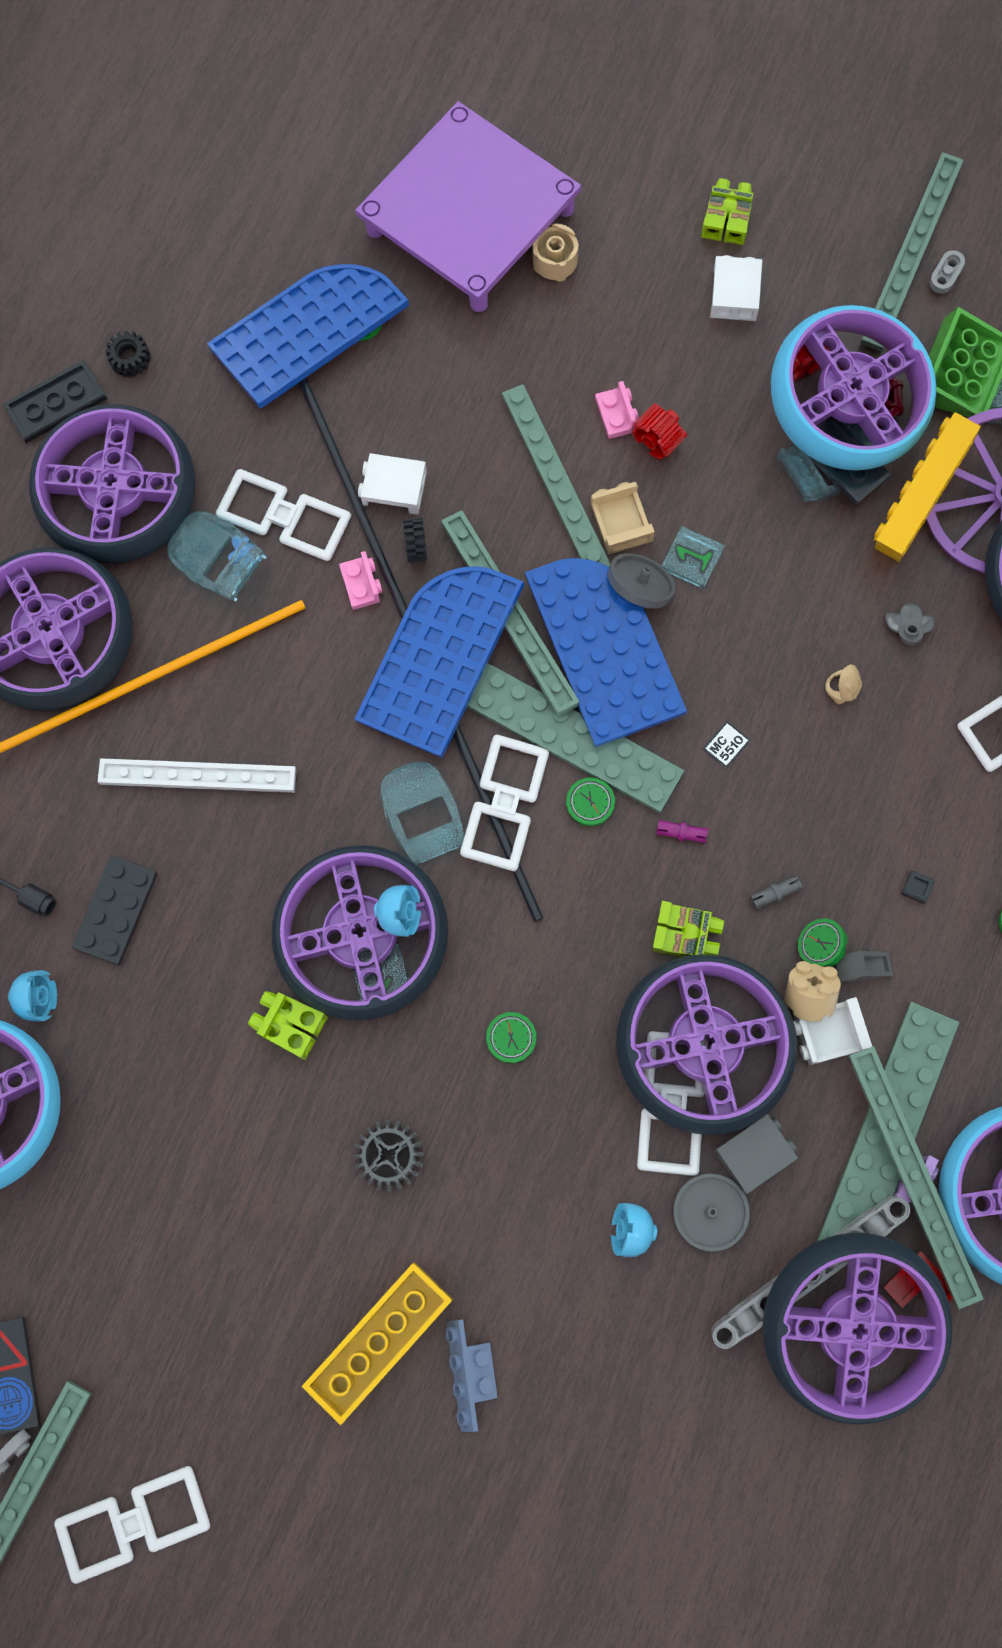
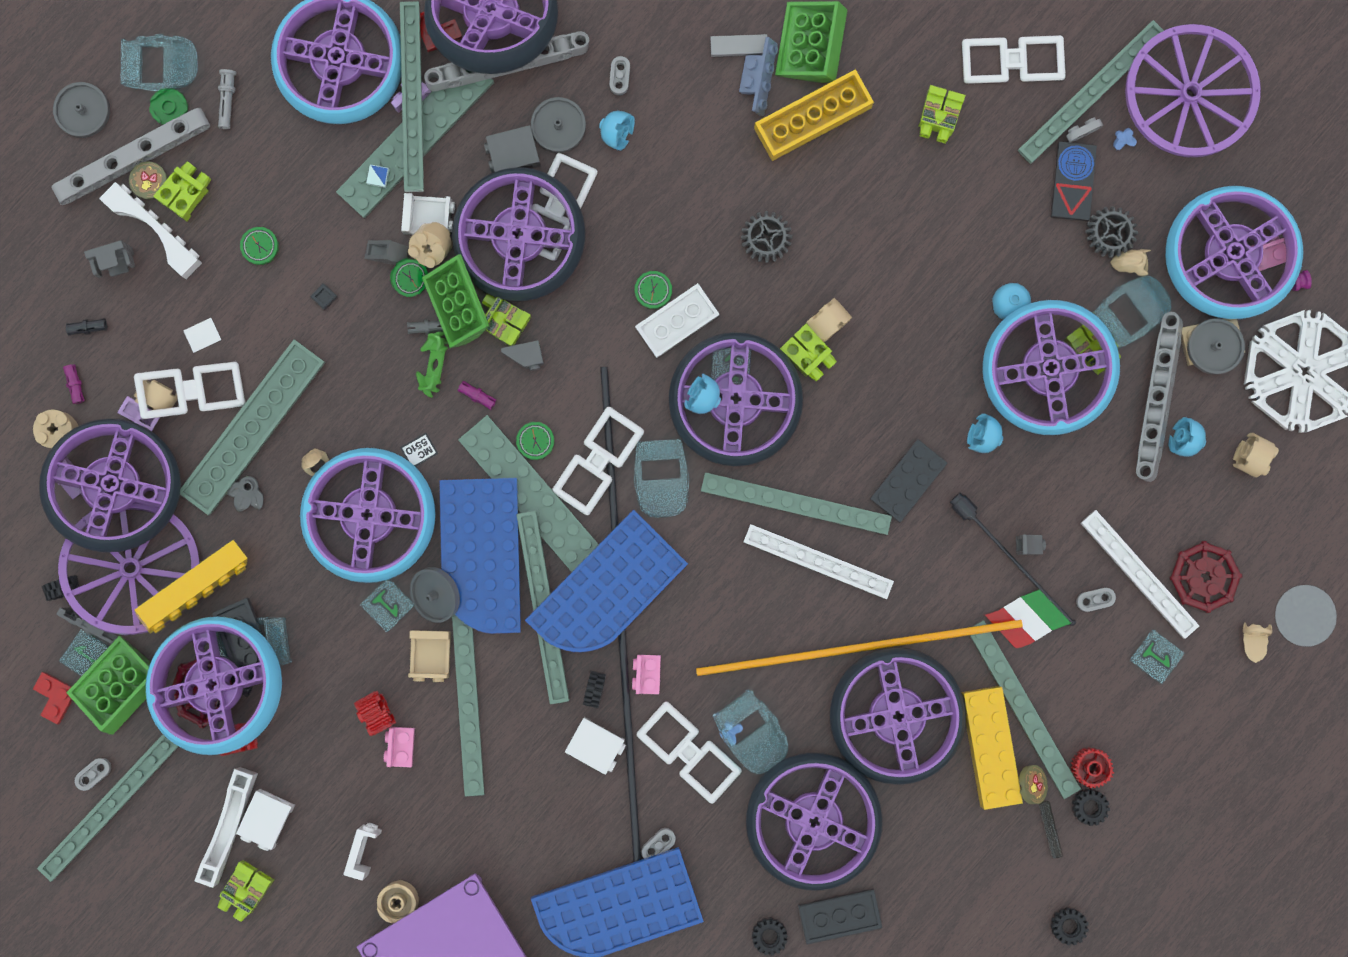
camera: 165 degrees left, 10 degrees up
(46, 1183) = (1010, 298): none -> medium azure cylinder
(209, 1407) = (940, 120): none -> lime hips
(246, 835) = (796, 503): none -> sand green plate
(272, 1071) = (829, 320): none -> tan brick
(284, 407) = (658, 844): none -> light grey plate
(415, 1450) = (811, 41): none -> bright green slope
(467, 1008) = (677, 320): none -> white plate
(512, 1409) = (737, 45): none -> light grey tile
(614, 271) = (353, 867): none -> white panel
(640, 898) = (526, 355): none -> dark grey slope
(655, 1307) = (619, 76): none -> light grey plate
(741, 581) = (374, 461): none -> medium lavender wheel
(744, 828) = (437, 351): none -> bright green piece
(752, 926) = (456, 302): none -> bright green slope
(774, 264) = (225, 833): none -> white arch
(914, 1057) = (378, 176): none -> light aqua tile
(936, 702) = (251, 427): none -> sand green plate

